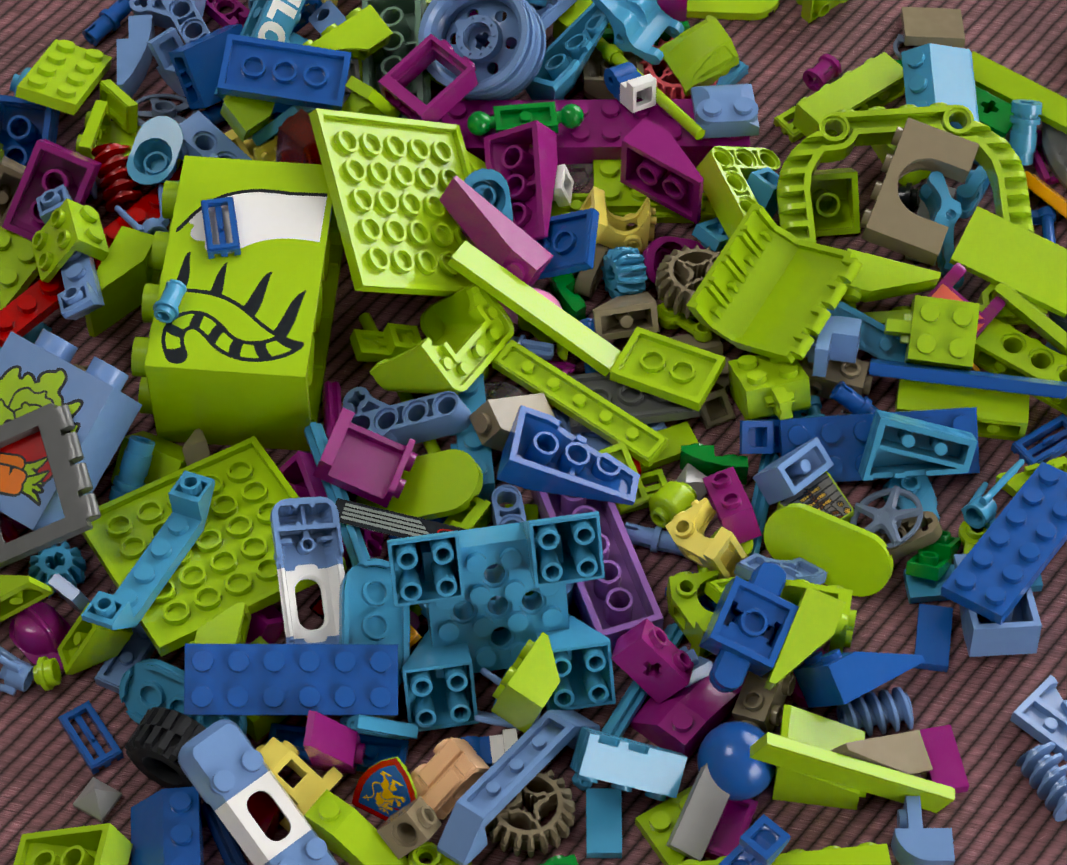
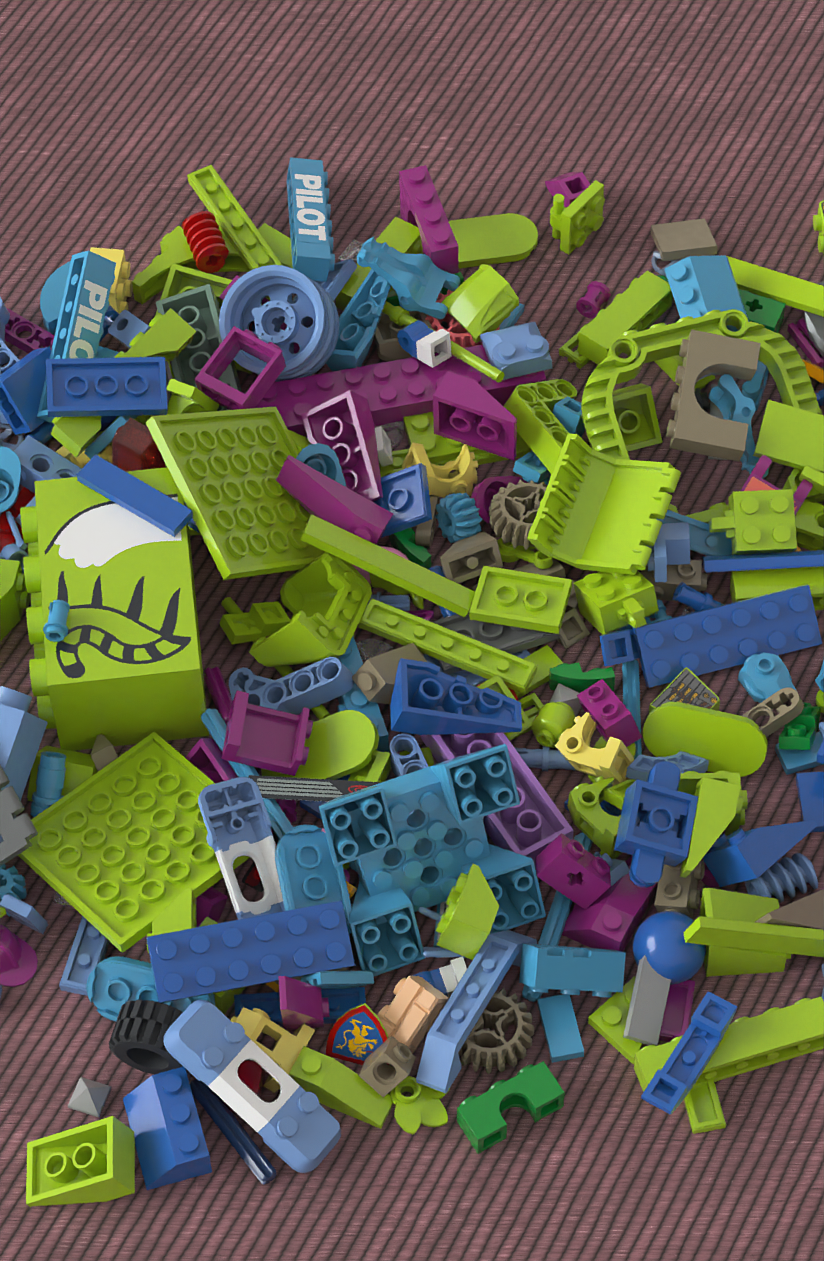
camera: 10 degrees left, 0 degrees up
(47, 673) = (14, 988): lime plate -> none
(90, 645) = (51, 947): lime slope -> none
(103, 758) = (86, 1058): blue tile -> none
(126, 608) = (99, 861): dark azure slope -> none
(223, 247) = (93, 561): blue tile -> none
(282, 187) = (134, 495): none -> blue tile
(510, 116) = (331, 387): green plate -> none
(793, 471) = (657, 674): medium blue slope -> none
(887, 278) = (704, 480): lime slope -> none
(888, 518) = (753, 701): sand blue wheel -> none
(911, 447) = (761, 631): dark azure wedge -> none
(1024, 128) = (790, 318): dark azure axle -> none

